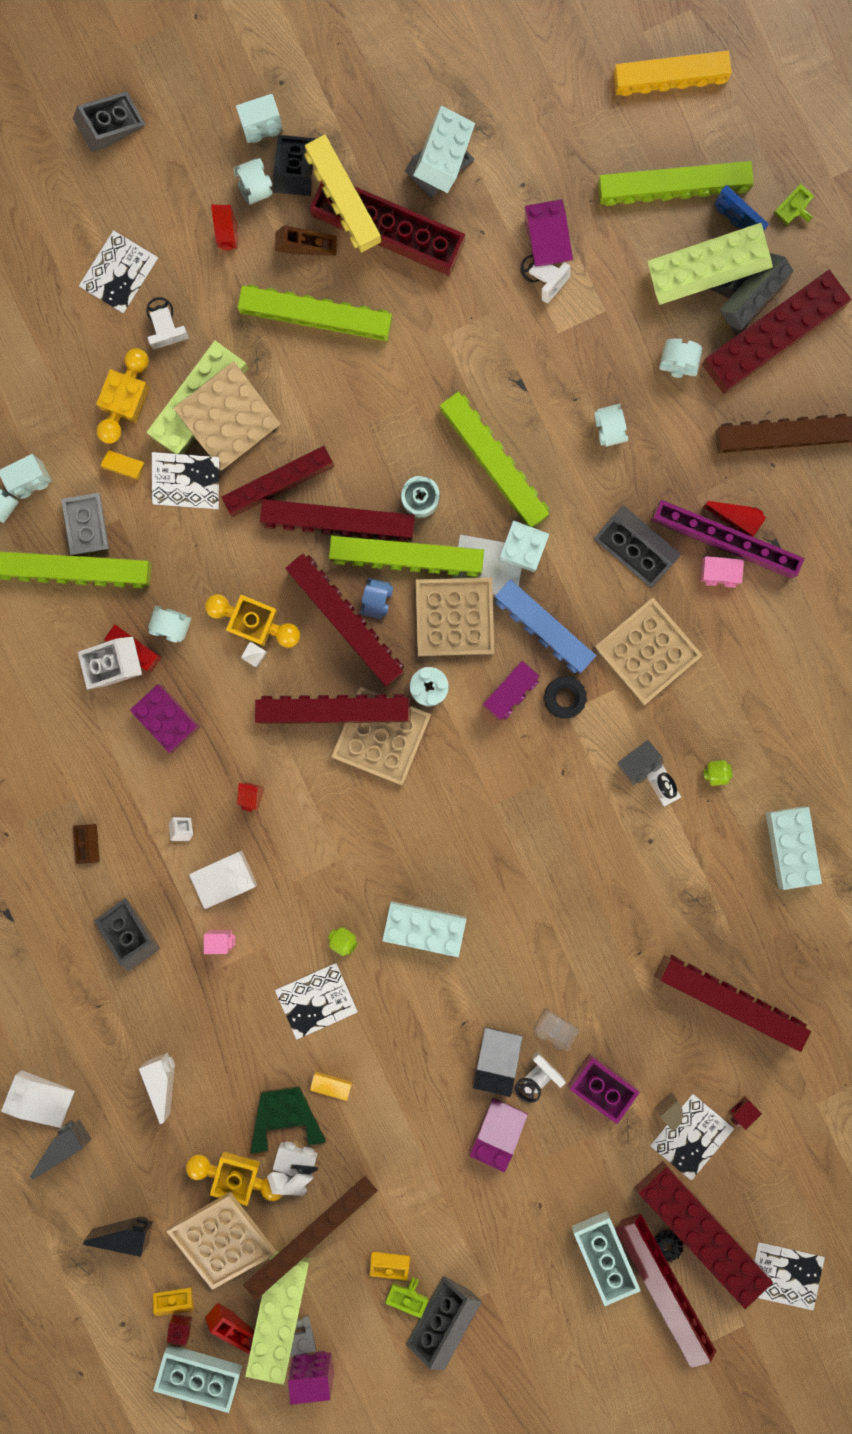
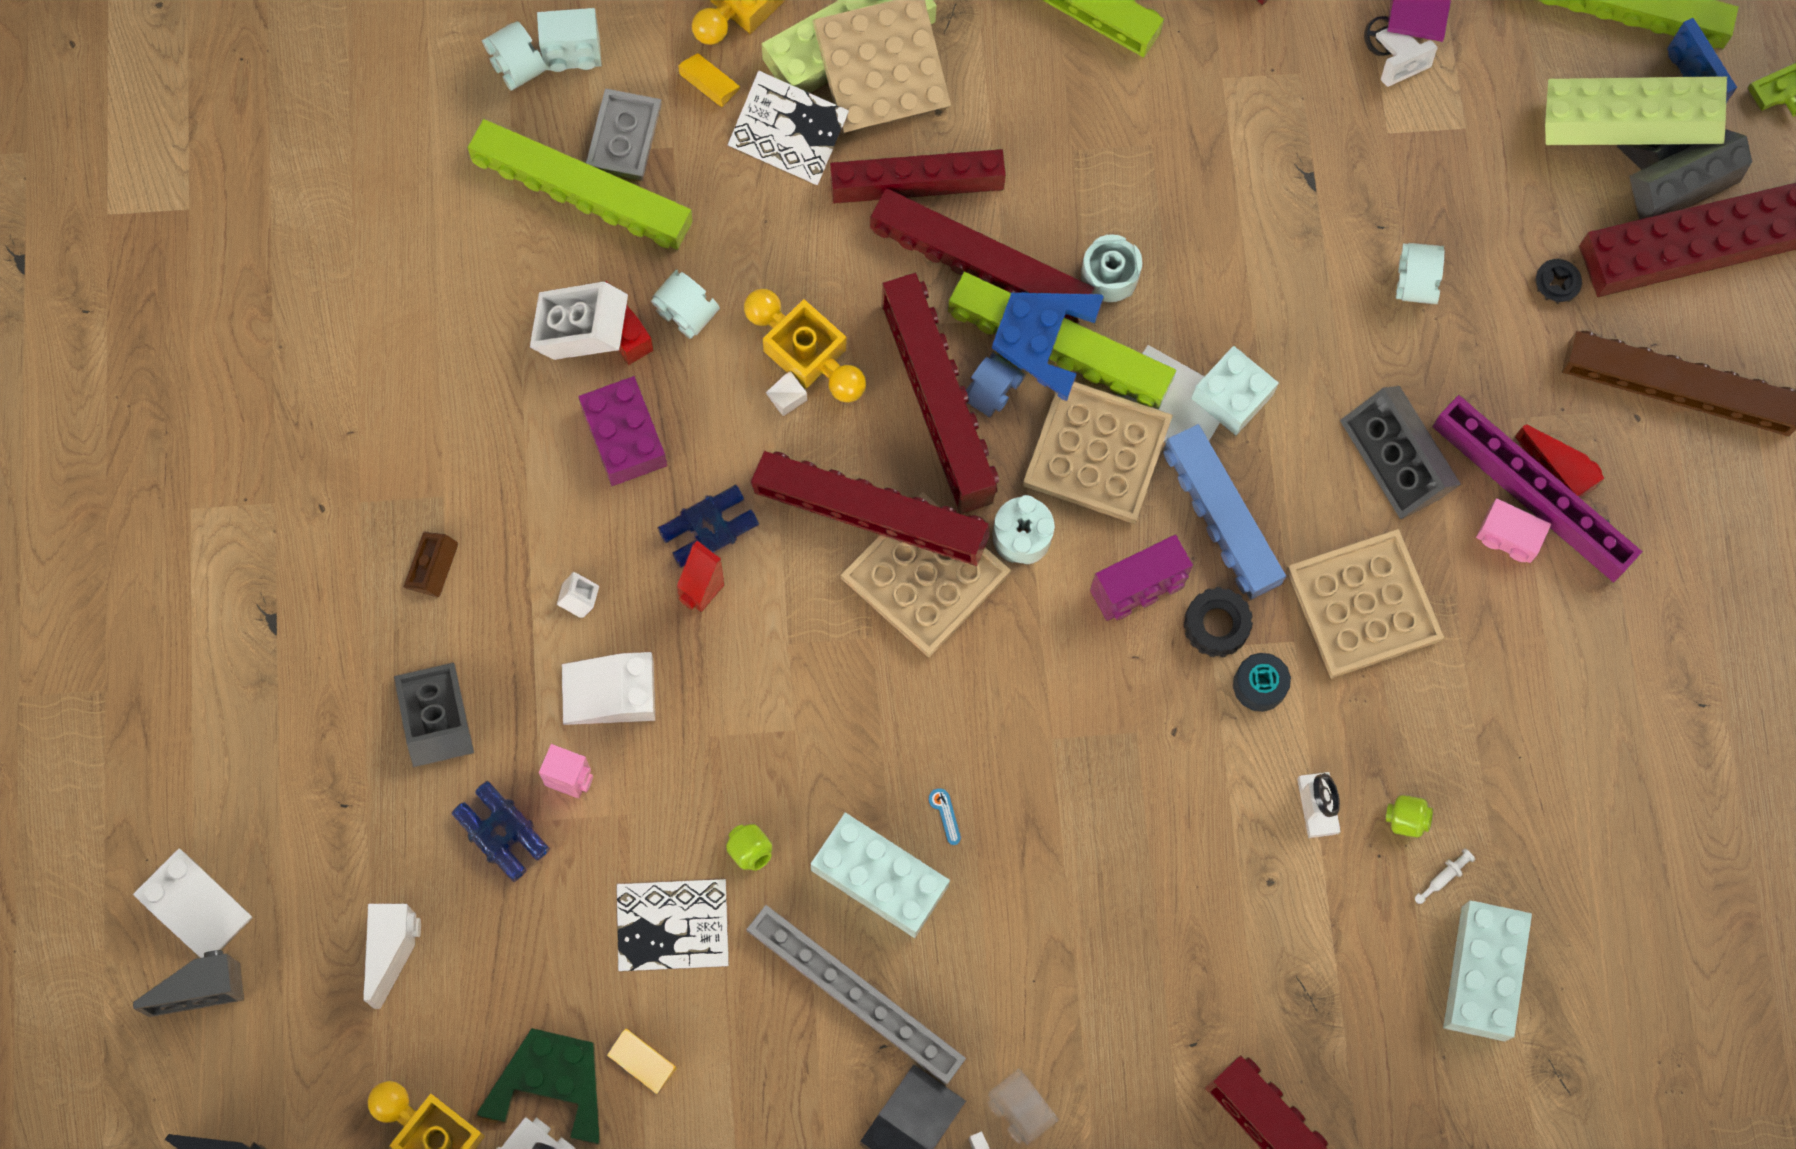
camera: 15 degrees right, 15 degrees down
(185, 992) = (506, 816): none -> clear blue pin
(242, 767) = (711, 511): none -> clear blue pin
(386, 558) = (1031, 330): none -> blue wing
(437, 1002) = (856, 994): none -> light grey plate
(442, 868) = (941, 800): none -> dark azure sticker
(494, 461) = (1235, 261): lime brick -> none
(598, 727) = (1255, 691): none -> black wheel
(641, 763) = (1297, 755): dark grey brick -> none
(681, 358) = (1552, 220): light aqua brick -> none
(695, 385) = (1561, 270): none -> black gear
(750, 799) = (1446, 875): none -> white piece

